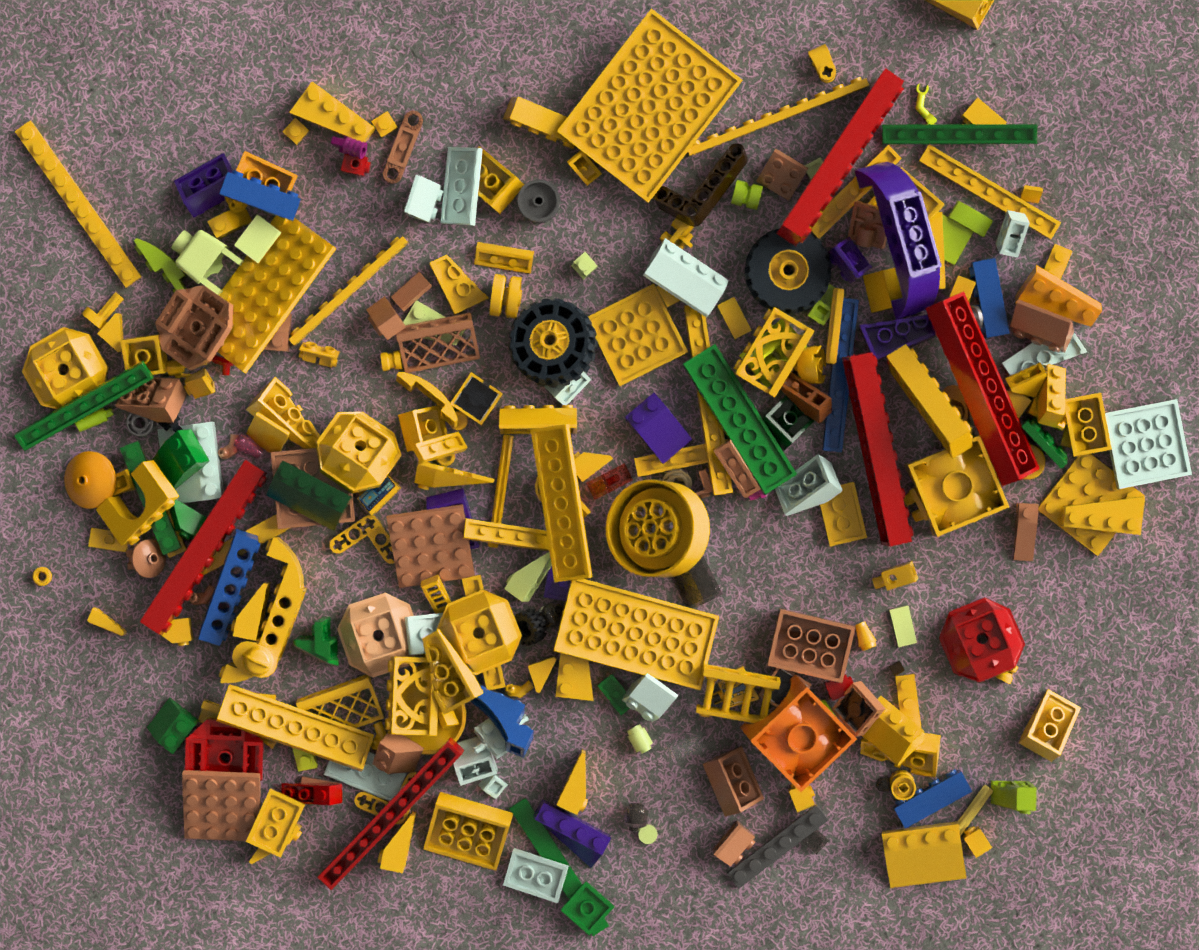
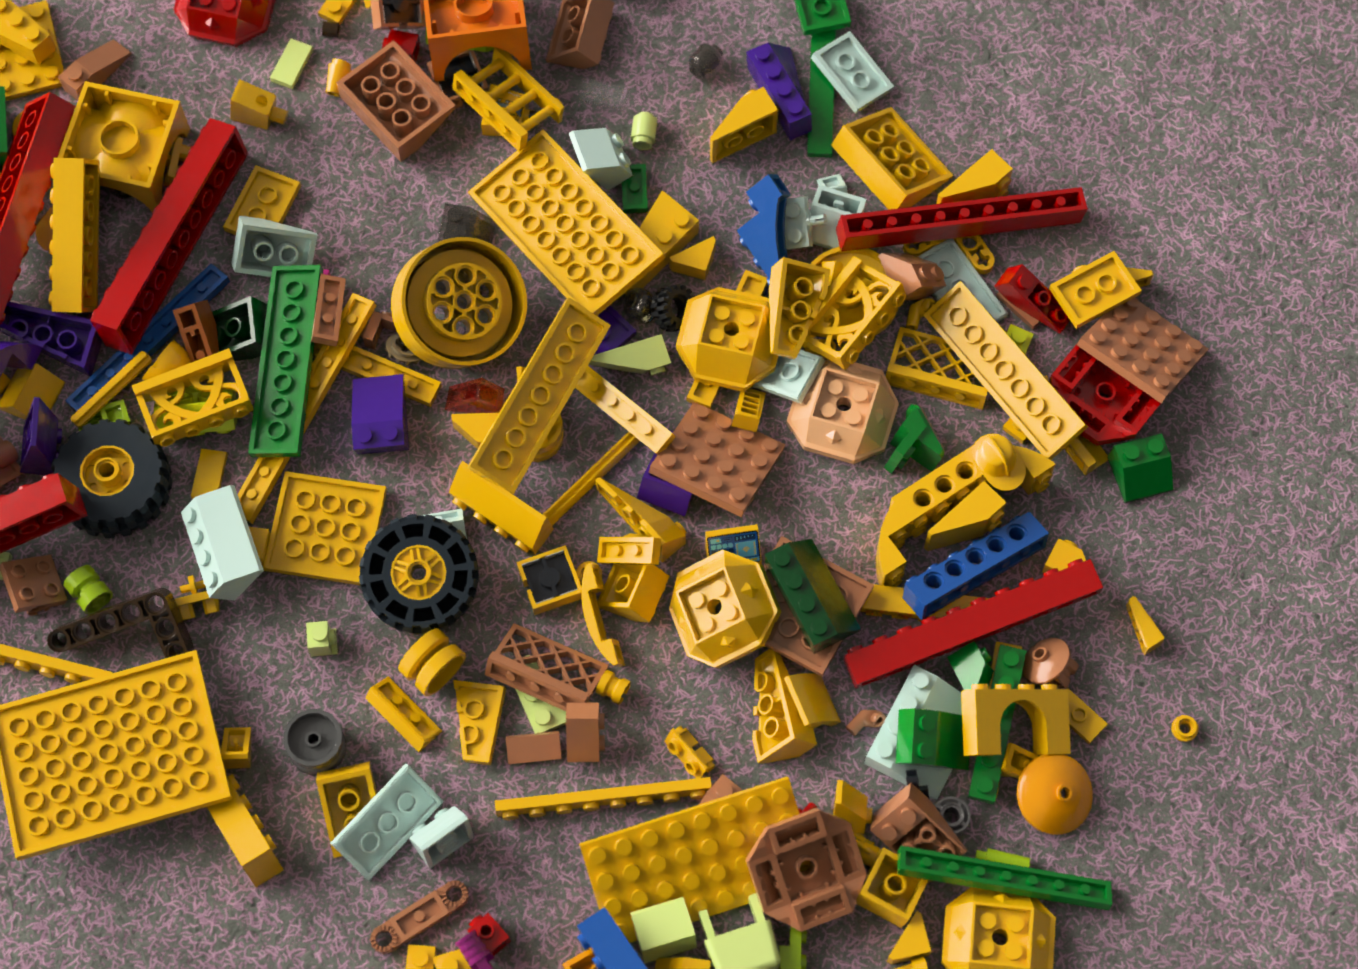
camera: 145 degrees left, 20 degrees down
(202, 598) = (1009, 580): nougat arm -> none
(247, 445) = (845, 708): clear pink cone -> none
(371, 533) = (773, 521): yellow beam -> none
(519, 691) = (733, 258): yellow arm -> none
(648, 834) = (706, 36): yellowish green tile -> none

